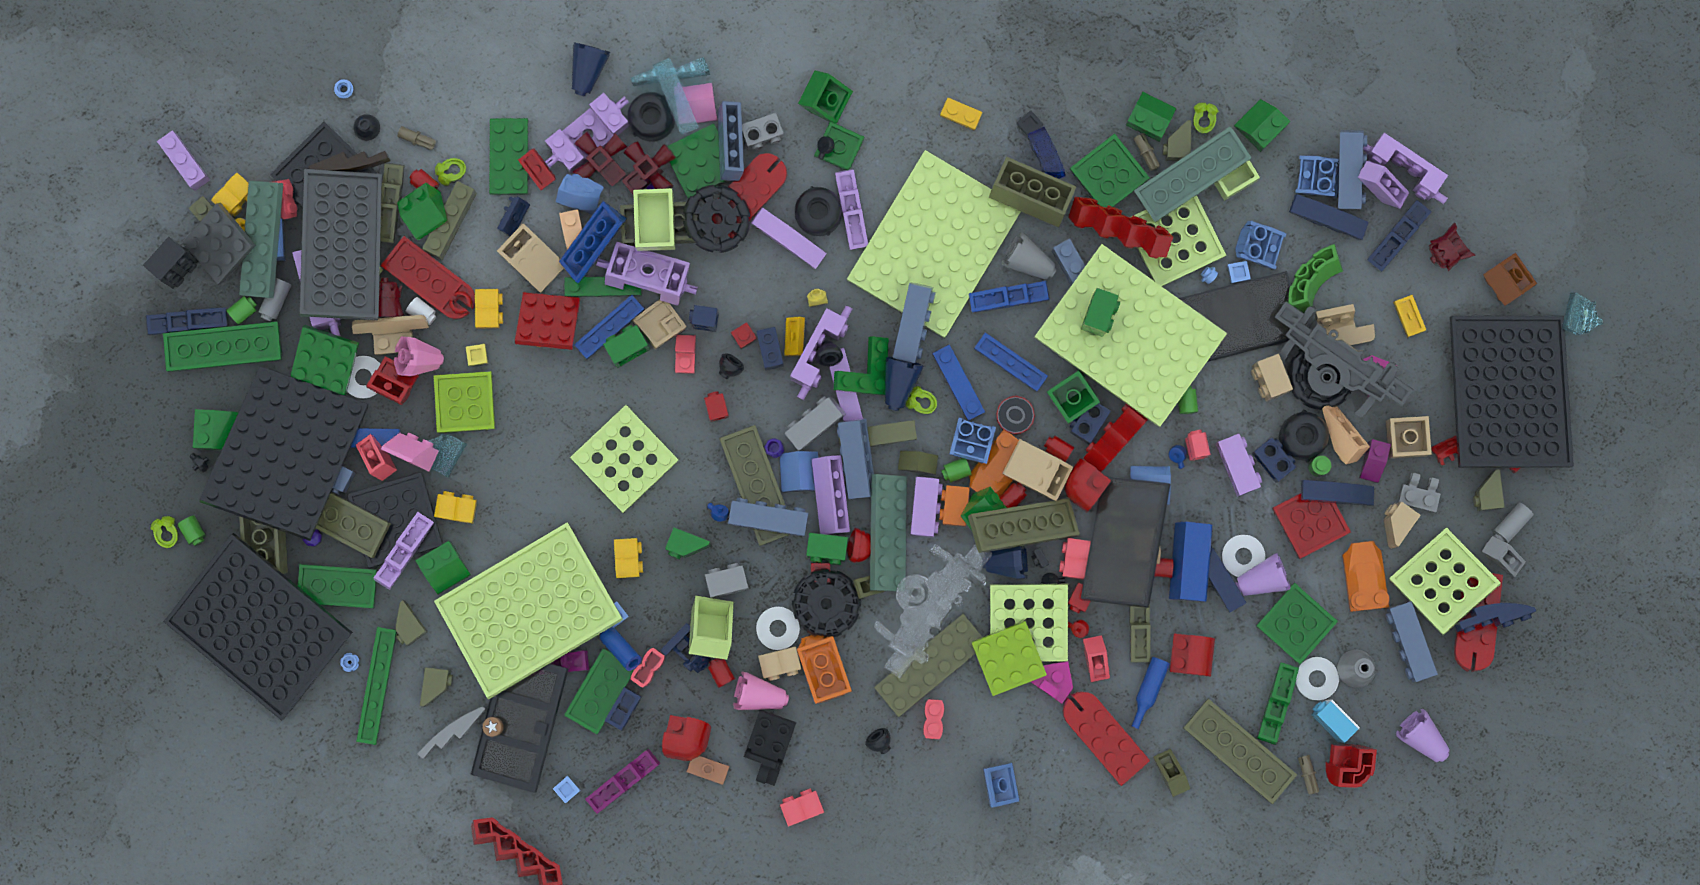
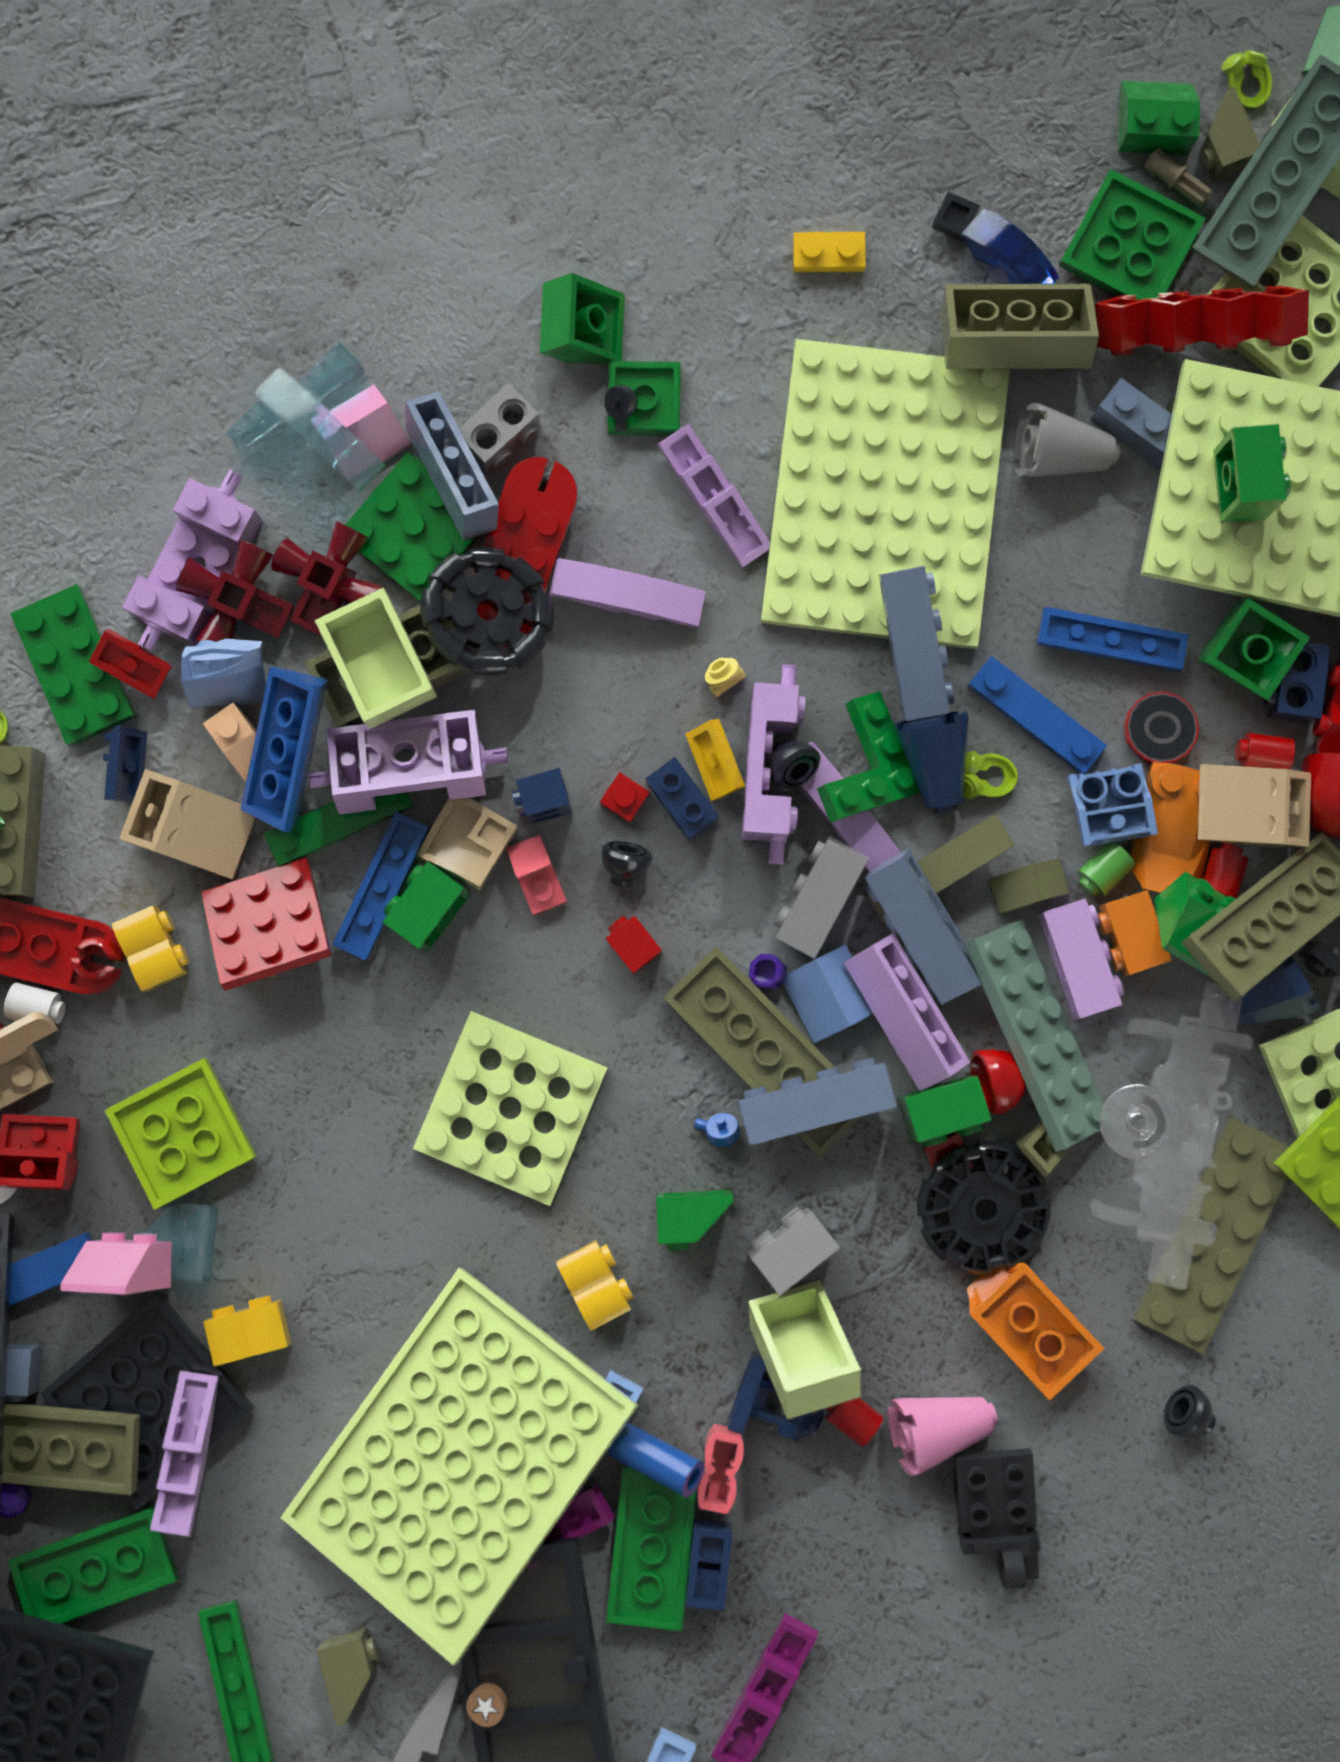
camera: 20 degrees left, 0 degrees up
(349, 667) = (173, 1707): light blue plate -> none
(376, 460) = (64, 1313): coral slope -> none
(408, 625) = (252, 1581): olive slope -> none
(416, 357) = (58, 1092): bright pink cone -> none
(443, 567) = (270, 1448): green slope -> none
(476, 355) = (166, 1039): light yellow plate -> none
(587, 67) = (142, 447): dark blue cone -> none
(655, 131) = (302, 513): black piece -> none
(685, 738) = (844, 1567): red brick -> none
(708, 769) = (907, 1600): nougat plate -> none
(765, 635) = (923, 1316): white gear -> none
(779, 663) = (950, 1352): tan brick -> none
(802, 807) = (1107, 1598): coral brick -> none
(822, 226) = (664, 552): black piece -> none
(933, 725) = (1270, 1339): coral brick -> none
(1009, 296) = (1056, 527): blue slope -> none

